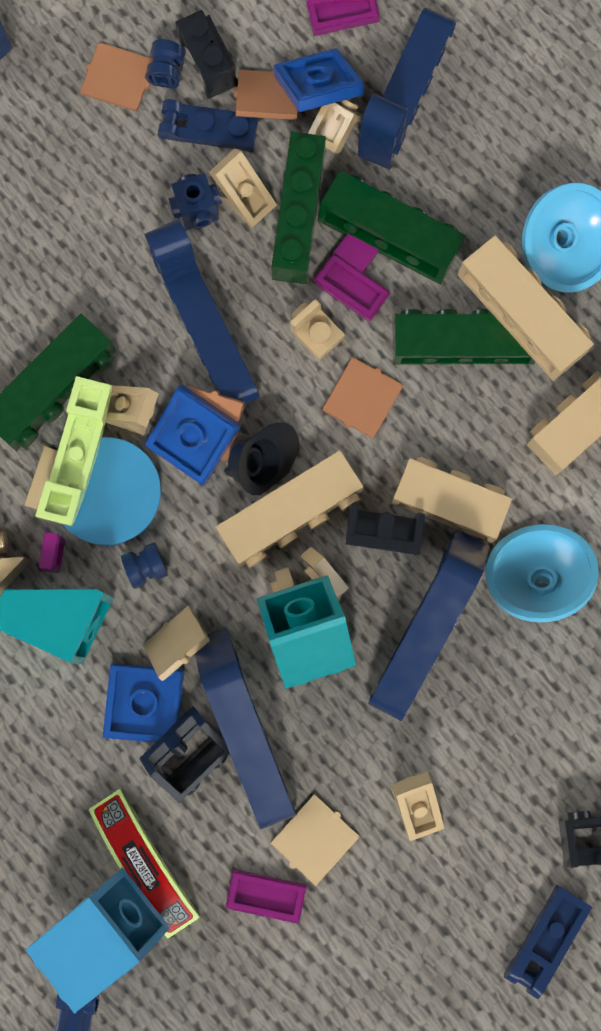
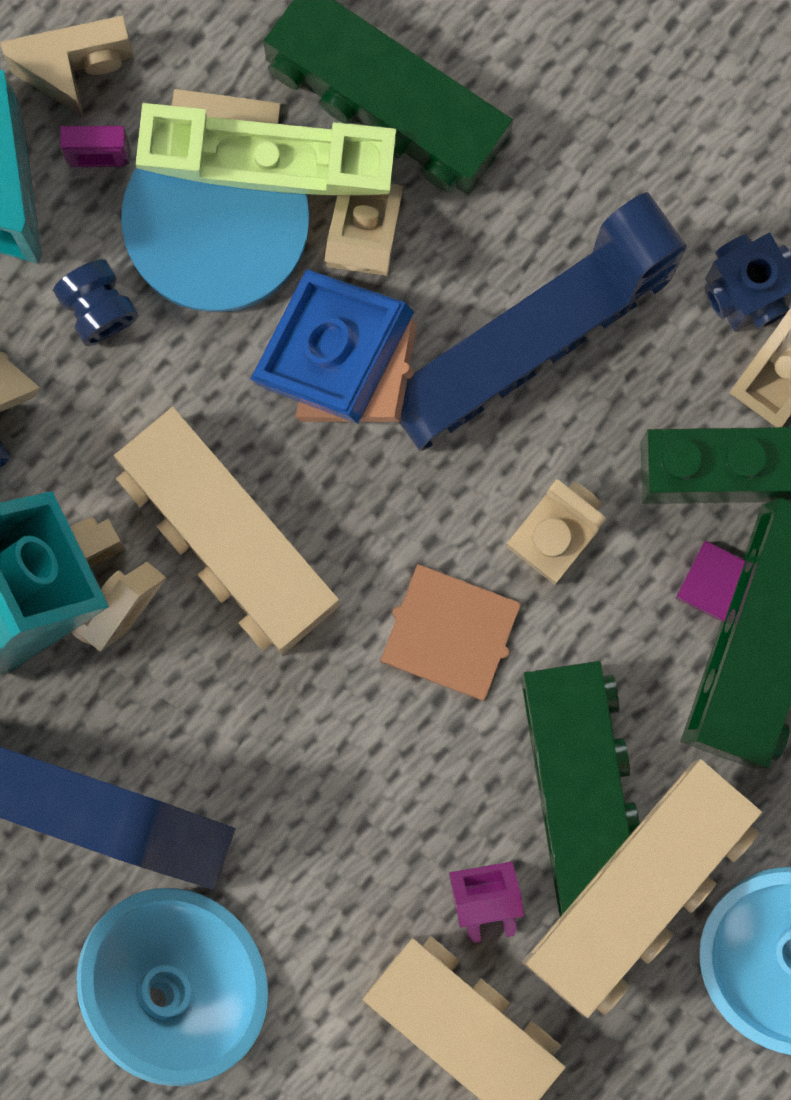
camera: 80 degrees right, 0 degrees up
(264, 458) = (308, 474): black piece -> none
(351, 287) = (647, 583): magenta tile -> none
(384, 531) = (207, 697): black window -> none
(452, 499) = (286, 812): tan brick -> none
(512, 397) = (487, 896): none -> magenta tile

